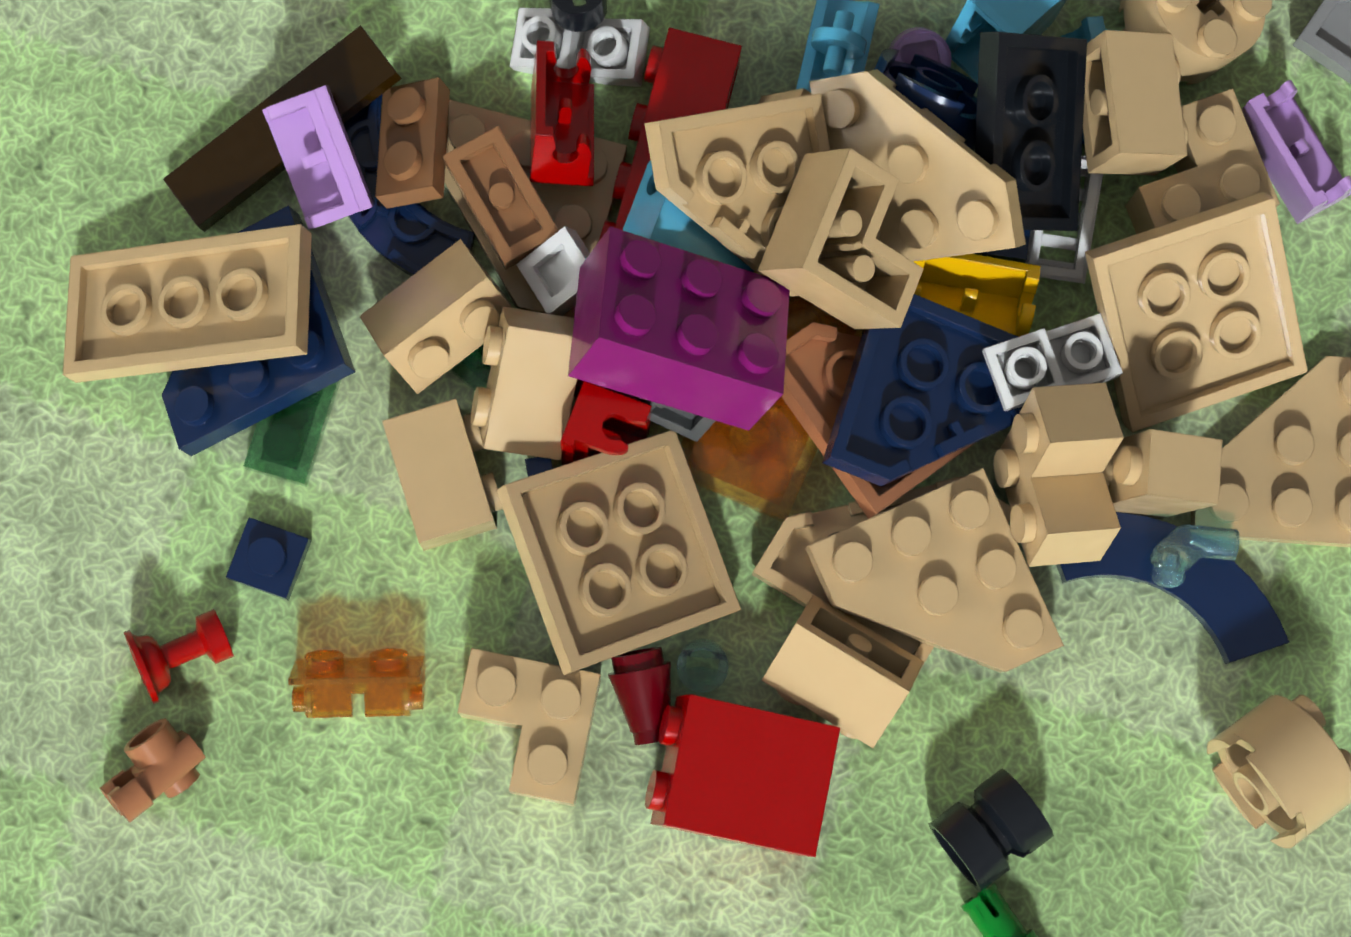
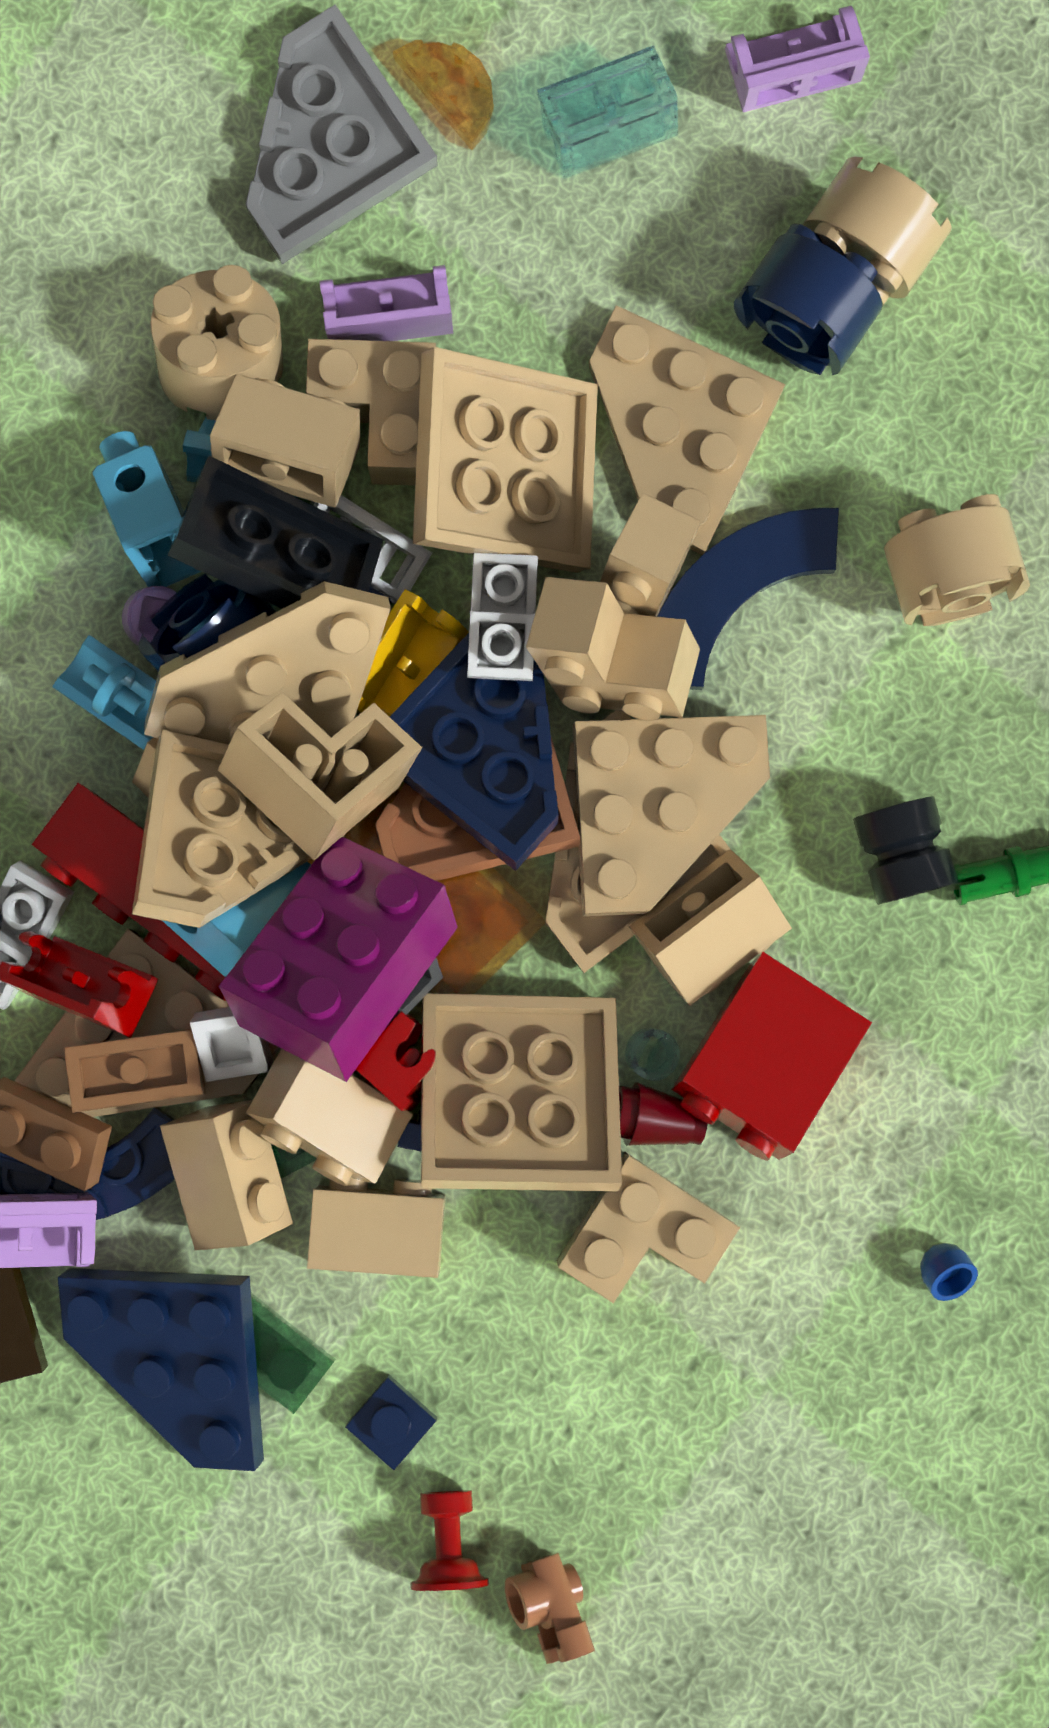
camera: 65 degrees left, 5 degrees up
(188, 304) = (119, 1412): tan plate -> none
(333, 680) = (529, 1409): clear orange hinge -> none
(1186, 546) = (717, 565): clear light blue arm -> none

